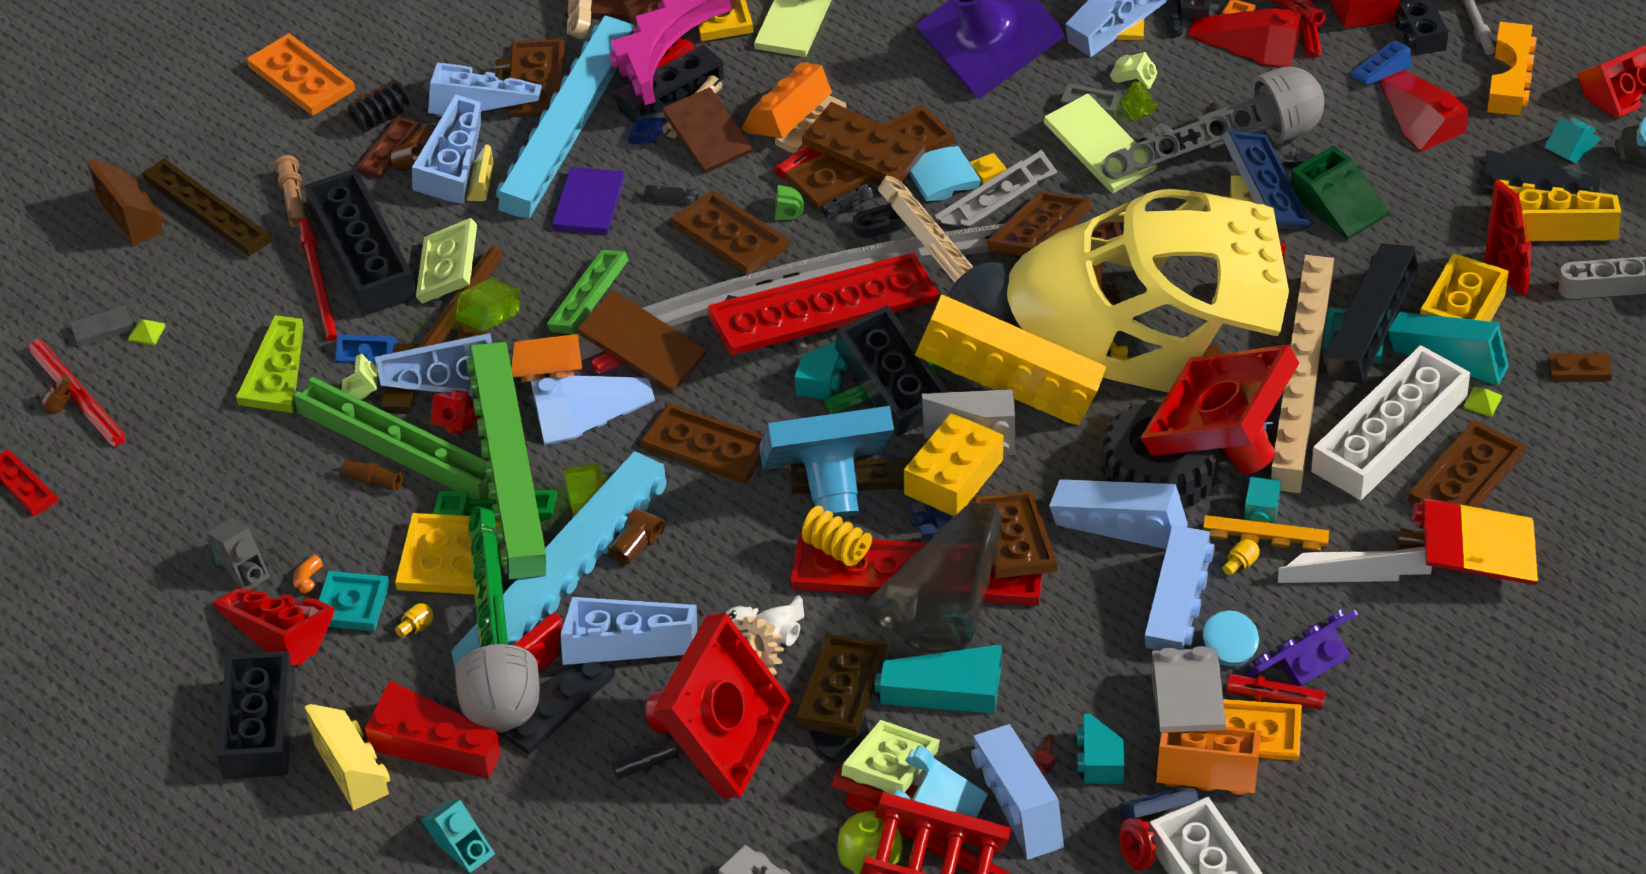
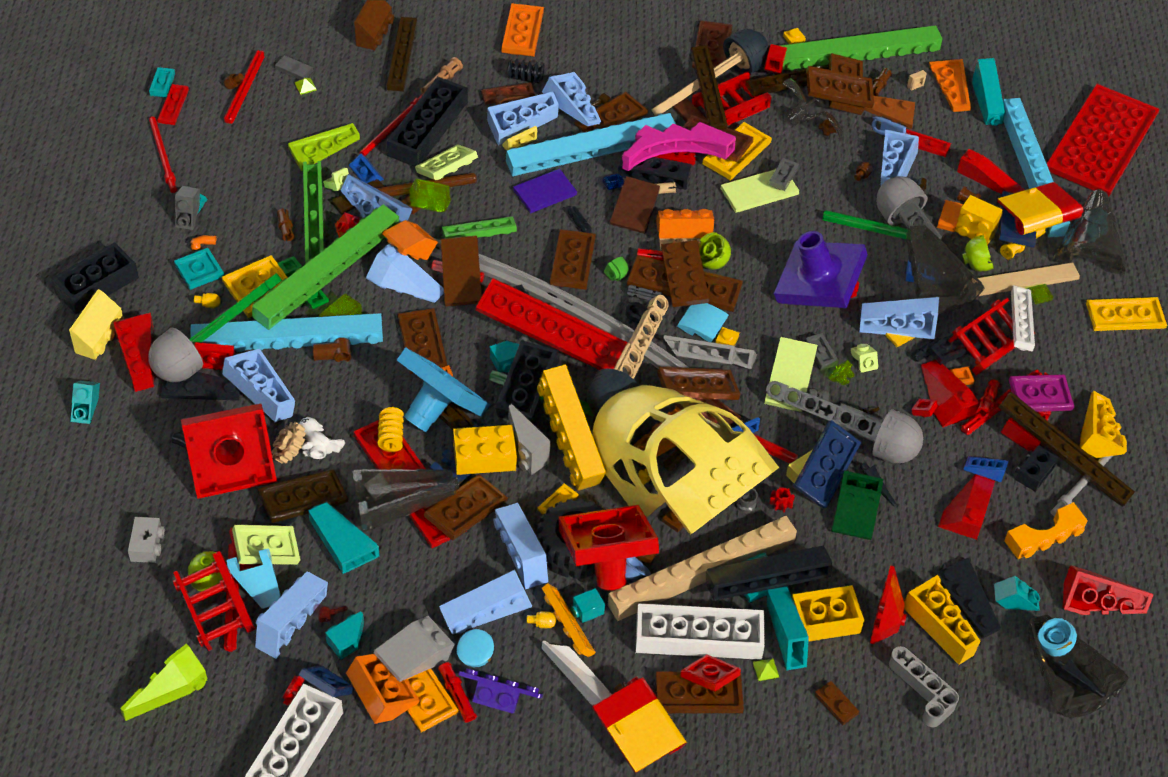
camera: 45 degrees right, 5 degrees up
(150, 551) = (169, 176): none -> red bar
(278, 622) = (160, 250): red wedge -> none
(858, 94) = (714, 251): none -> lime cylinder
(1081, 450) = (561, 494): none -> yellow tile
(1254, 63) = (924, 407): none -> red plate
(1458, 442) = (710, 672): none -> red tile

